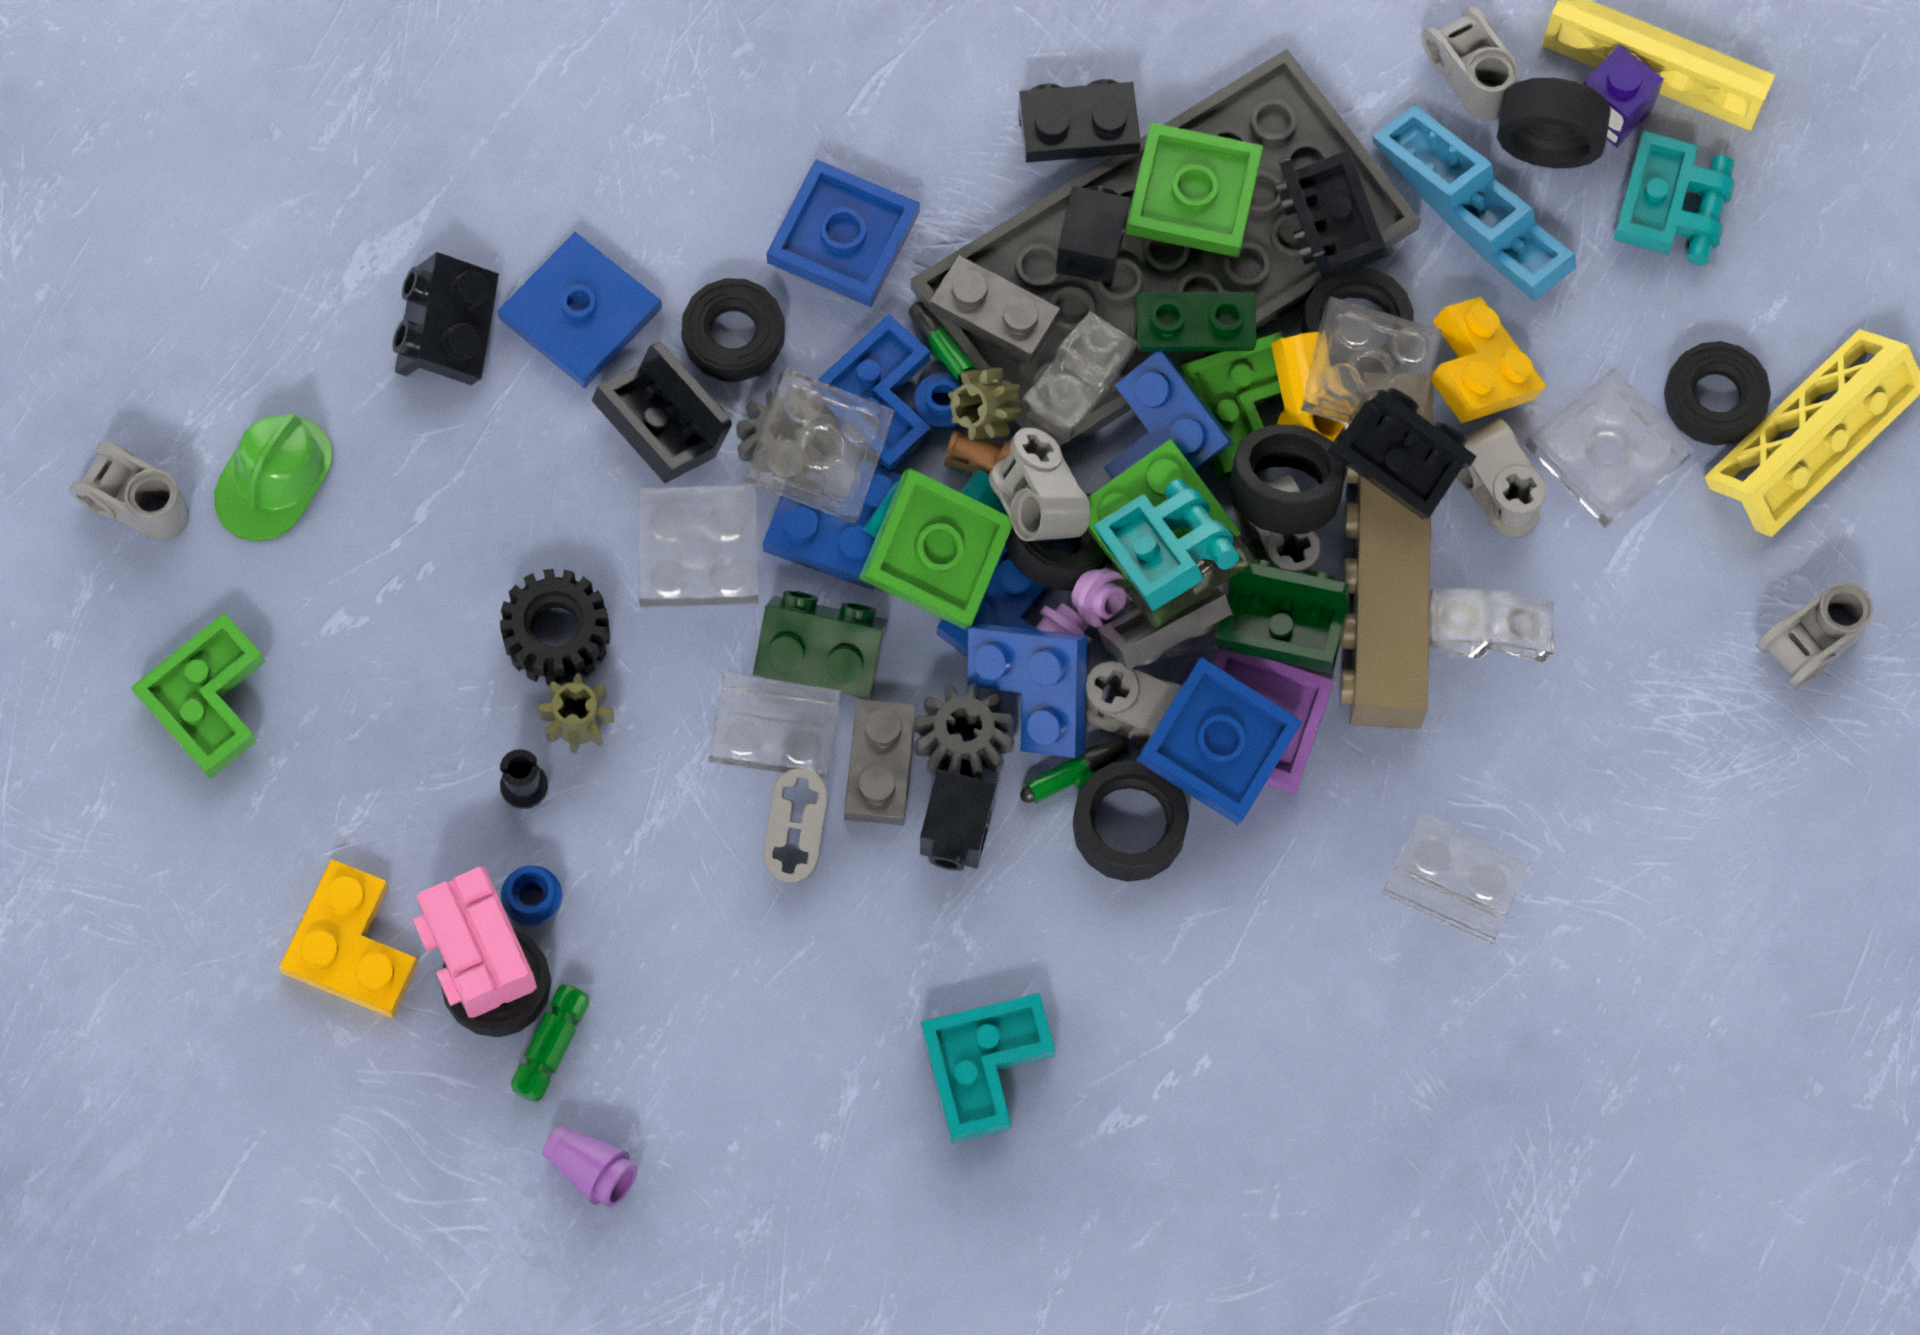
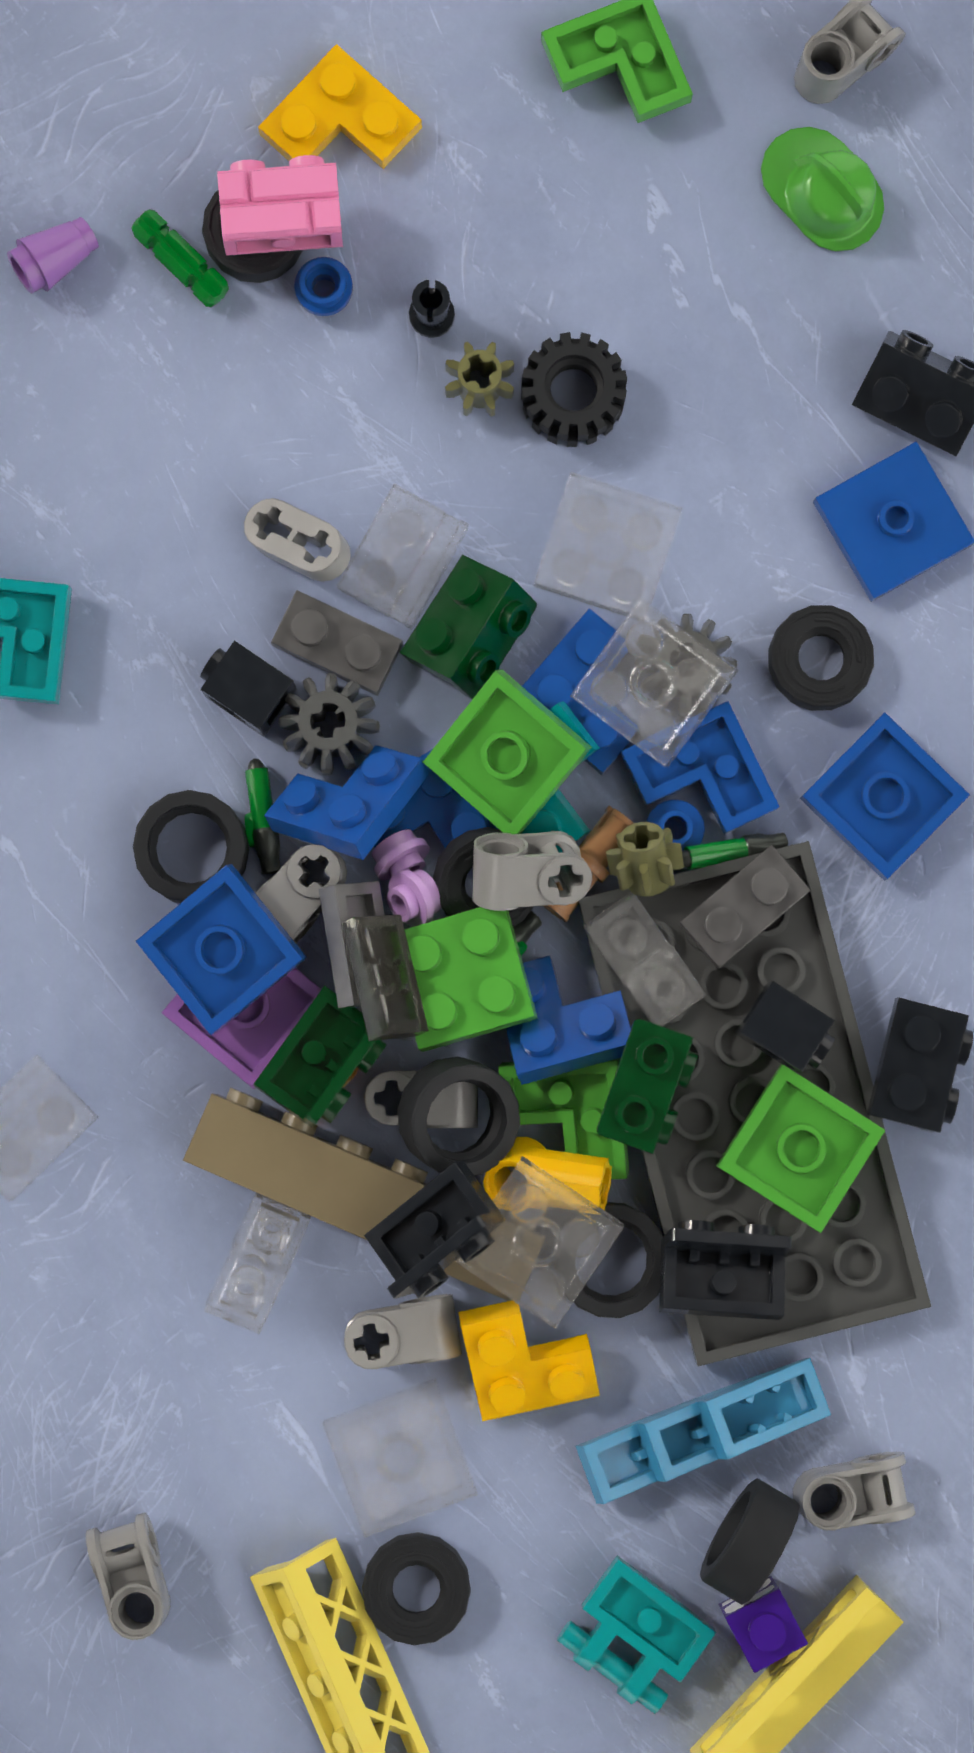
camera: 110 degrees right, 15 degrees up
(664, 414) = (750, 557): black bracket -> none
(1151, 553) = (409, 942): teal plate -> none

